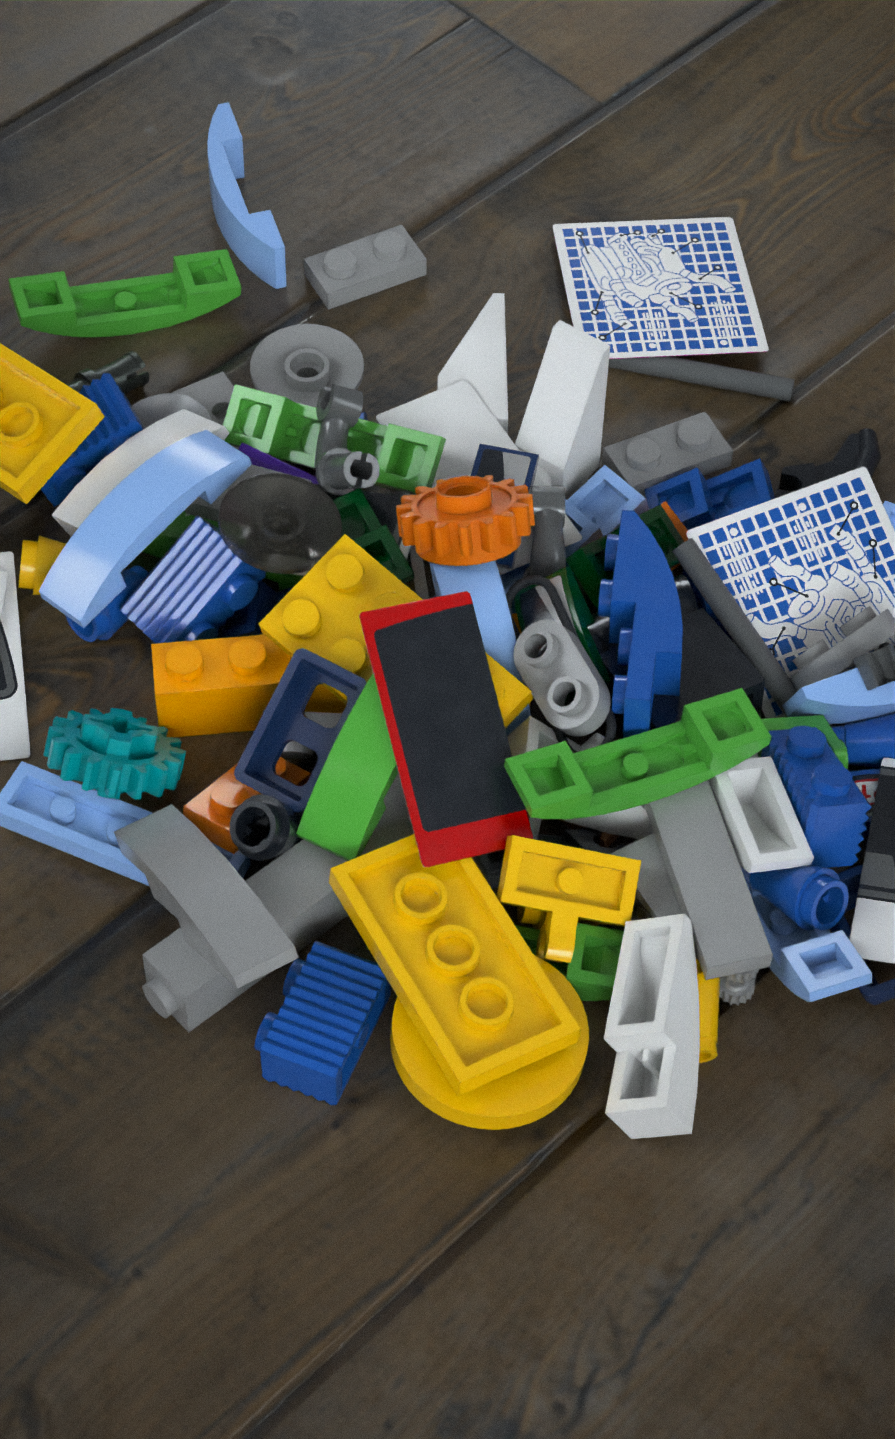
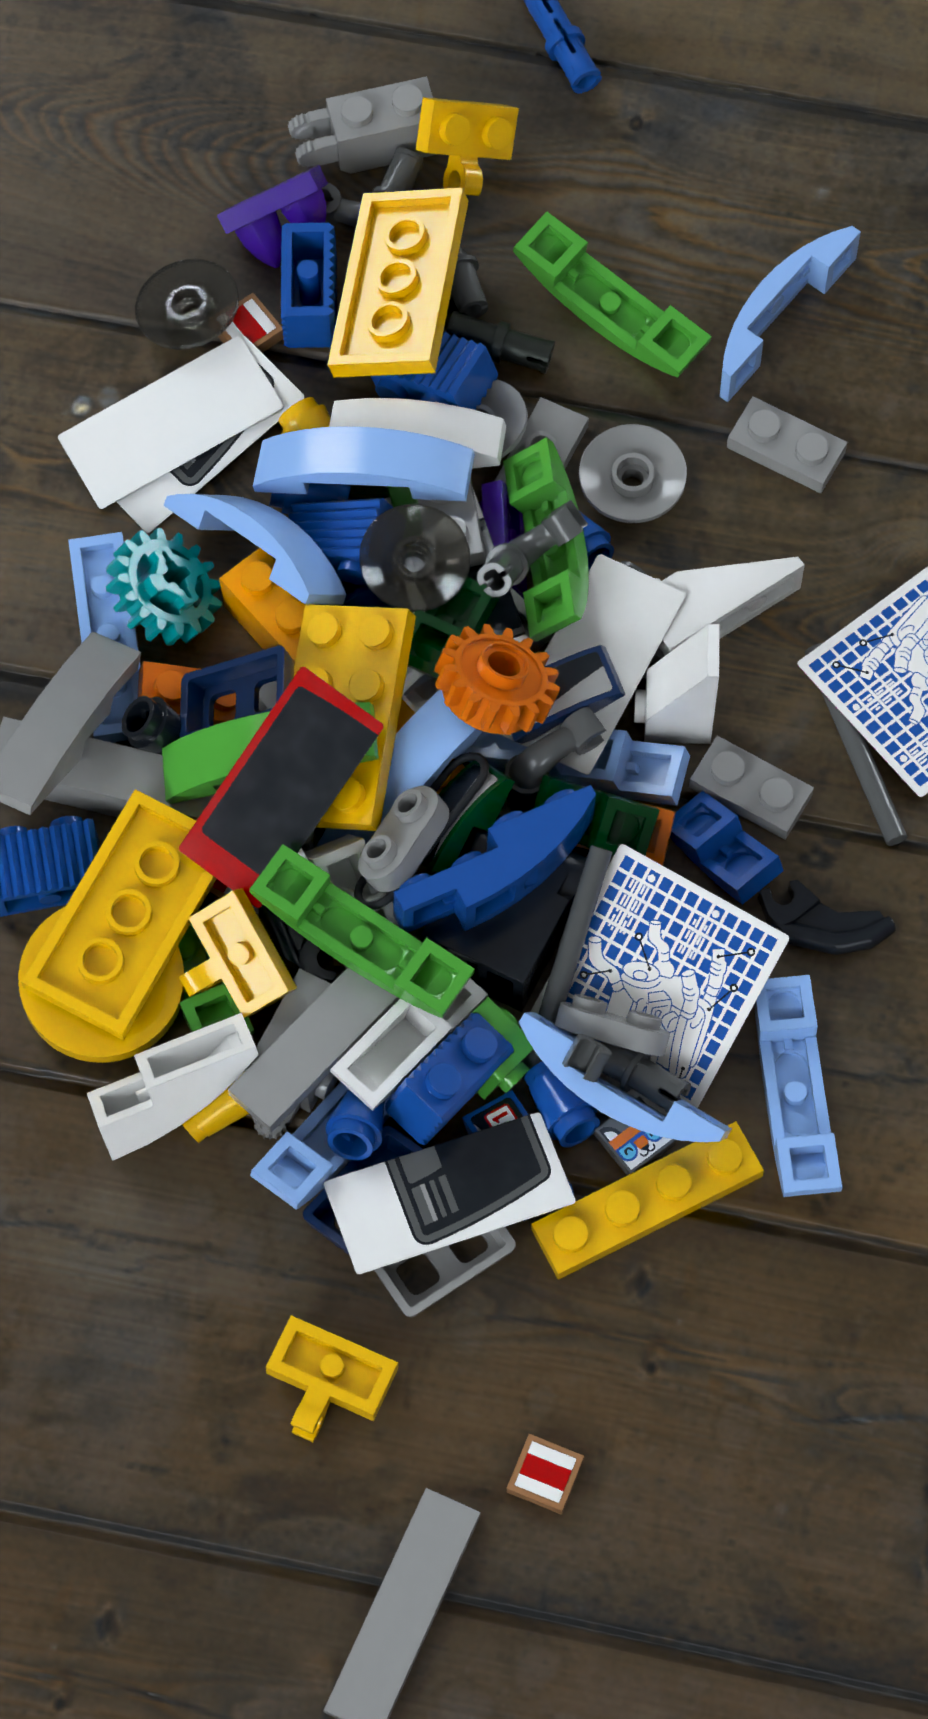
camera: 60 degrees right, 15 degrees up
(210, 617) = (299, 562): none -> light blue slope

